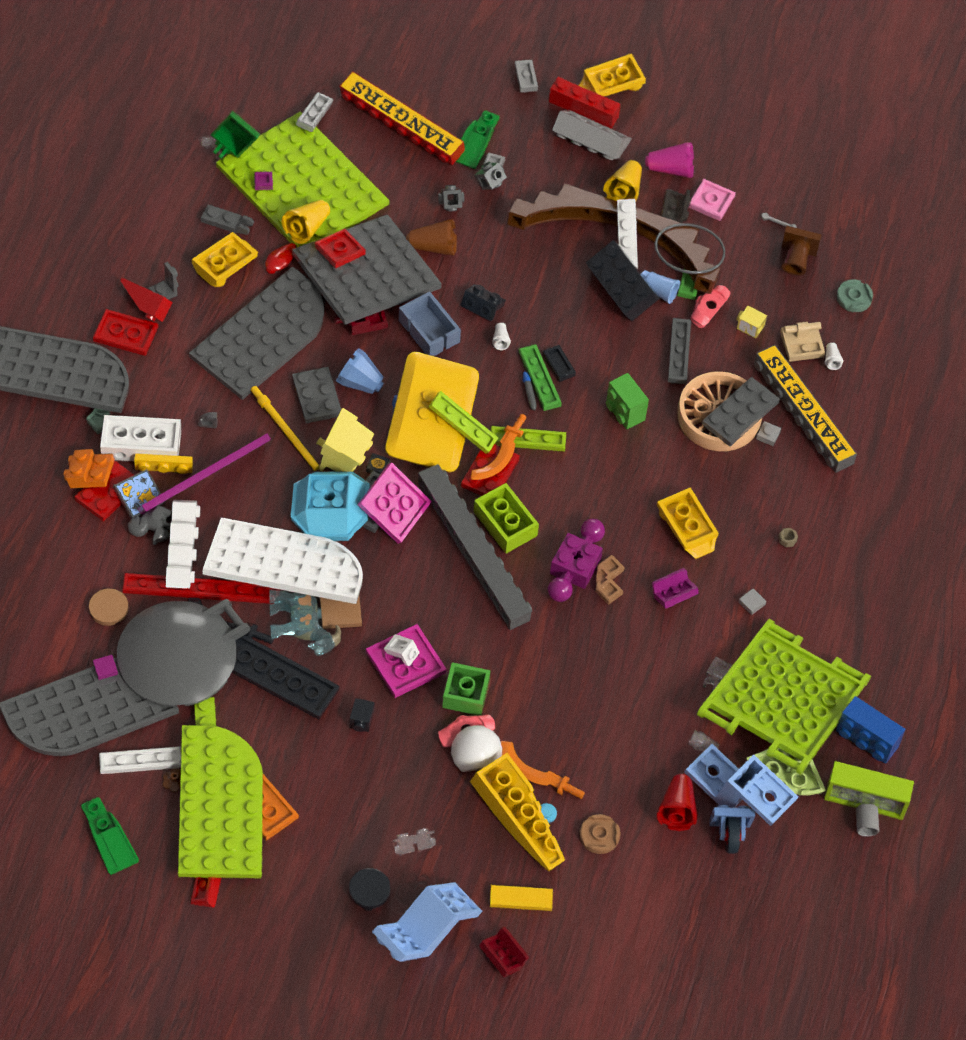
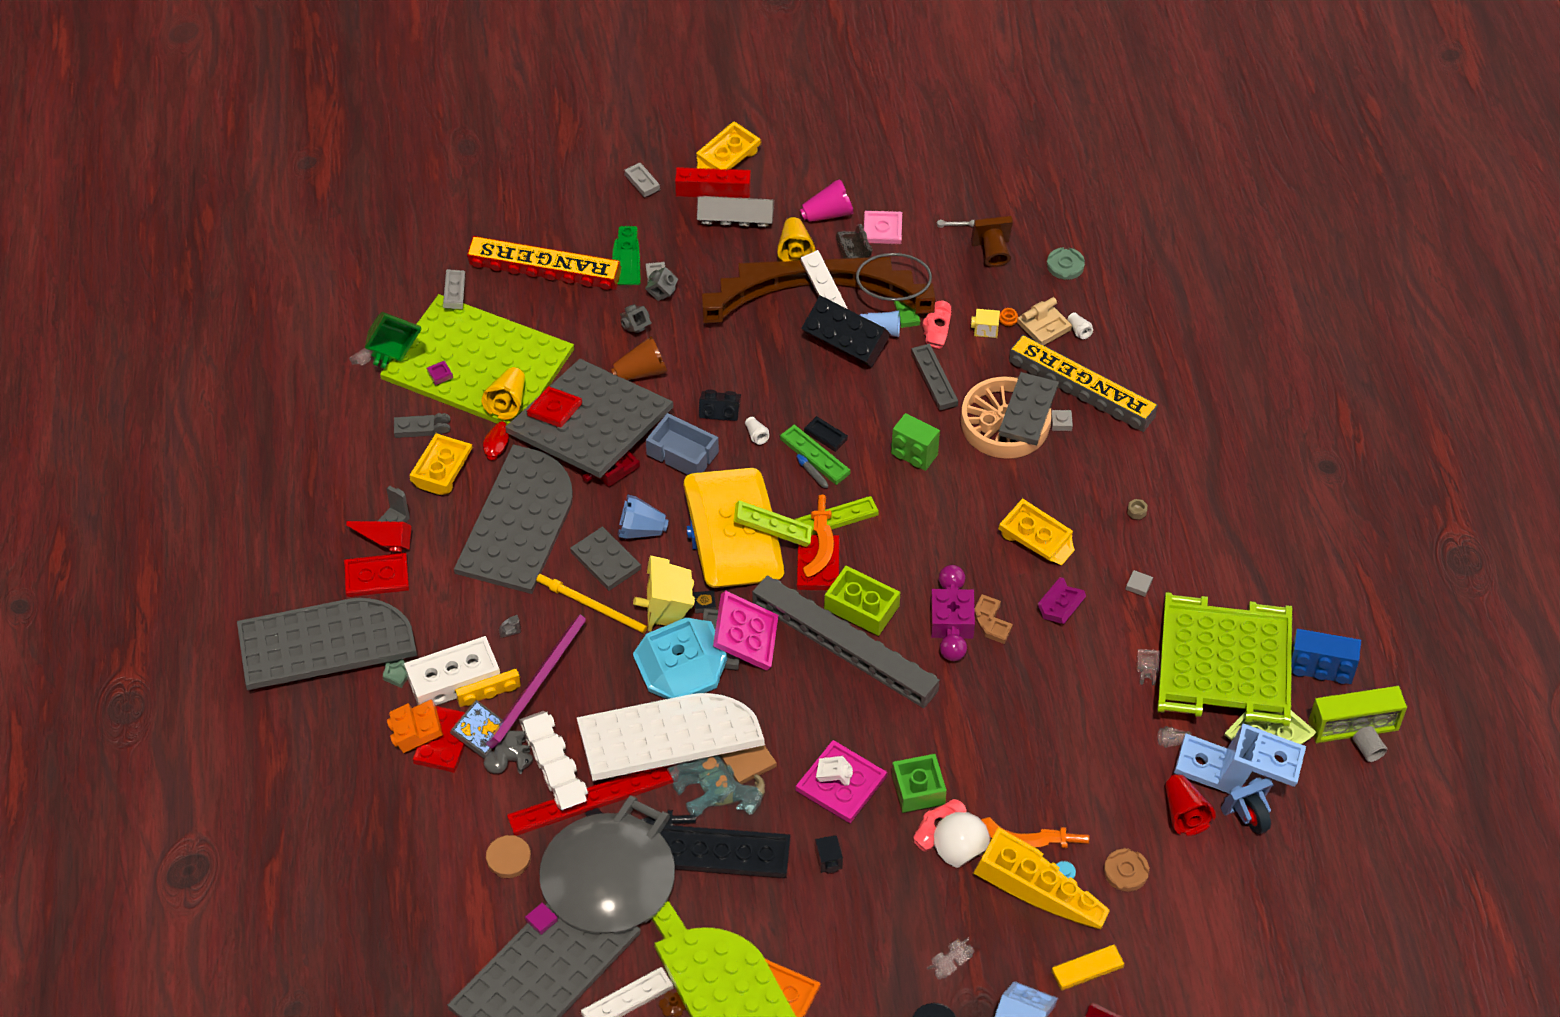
camera: 20 degrees left, 5 degrees down
(777, 320) = (1008, 317): none -> orange plate

